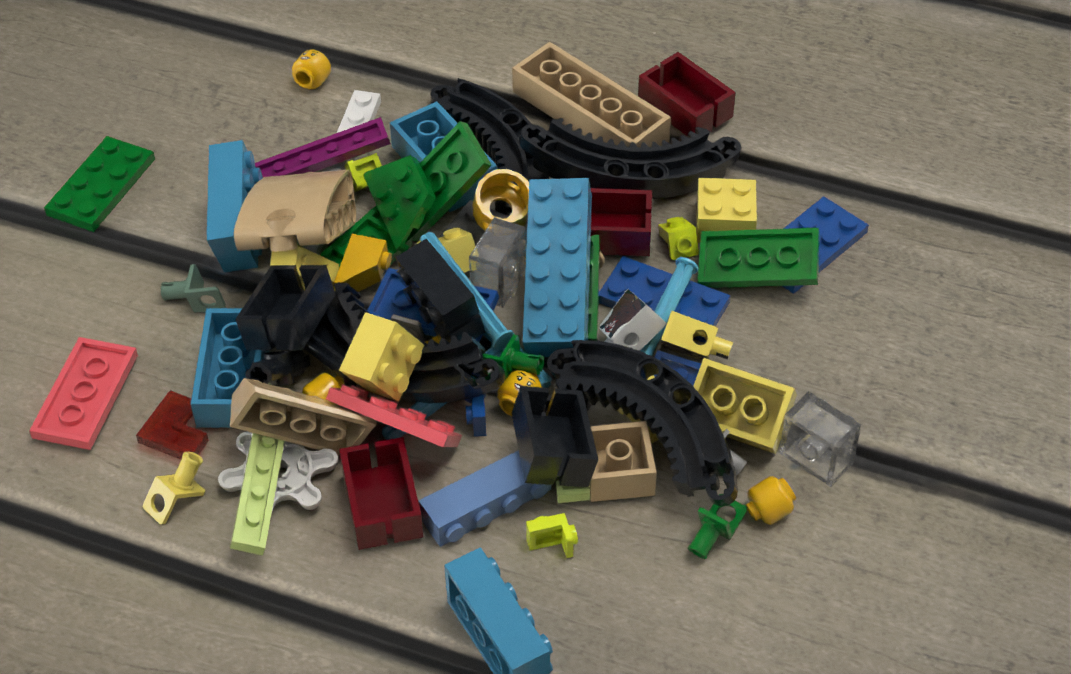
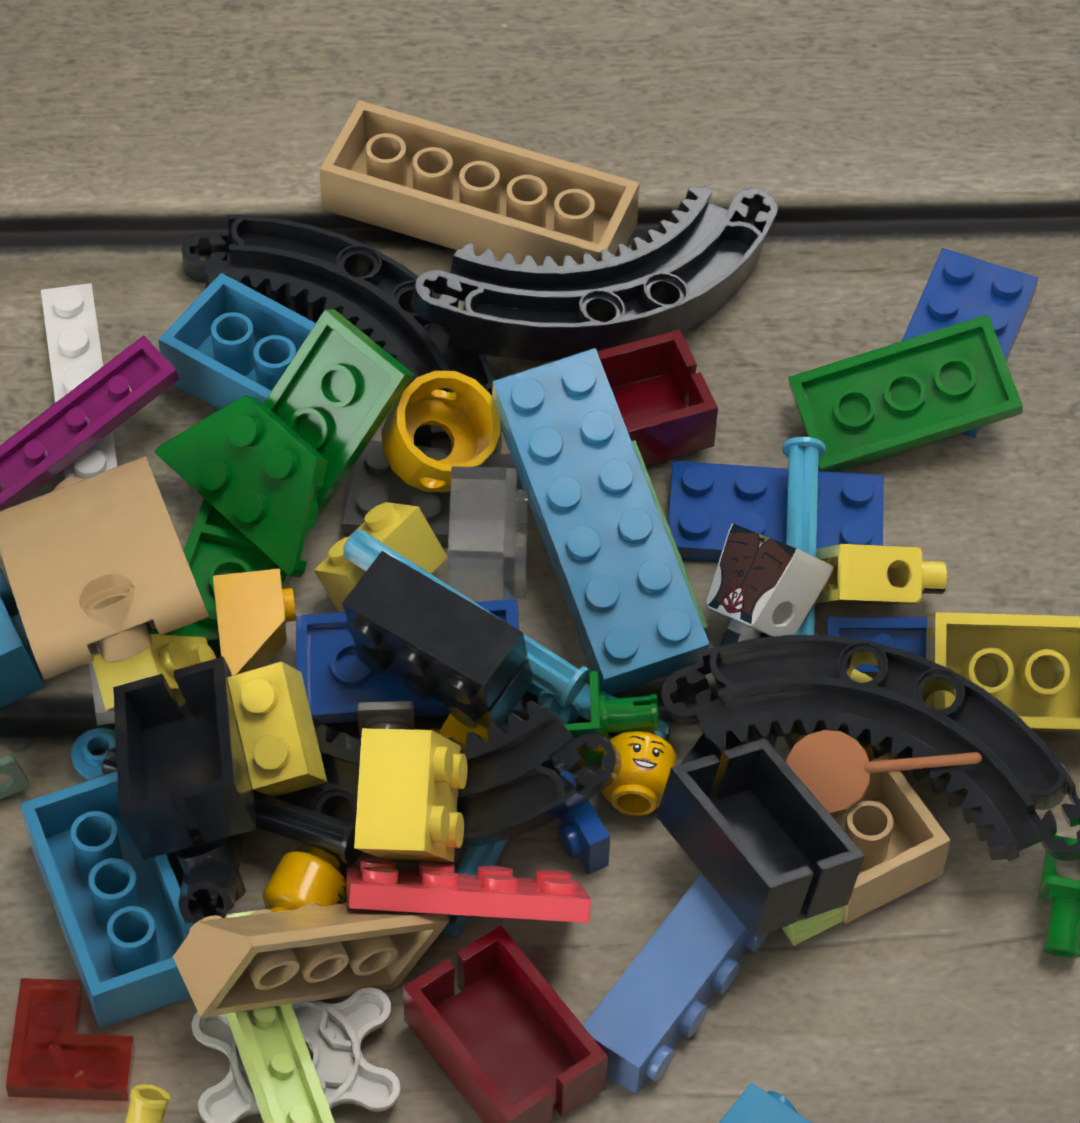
camera: 25 degrees left, 5 degrees up
(339, 309) = (276, 729): none -> light yellow brick
(361, 166) = (143, 438): neon yellow bracket -> none
(551, 531) = (811, 1002): neon yellow bracket -> none
(611, 417) = (840, 770): none -> nougat piece
(680, 237) = (750, 393): neon yellow bracket -> none
(687, 94) = (635, 130): dark red piece -> none
(725, 205) = (801, 320): light yellow brick -> none

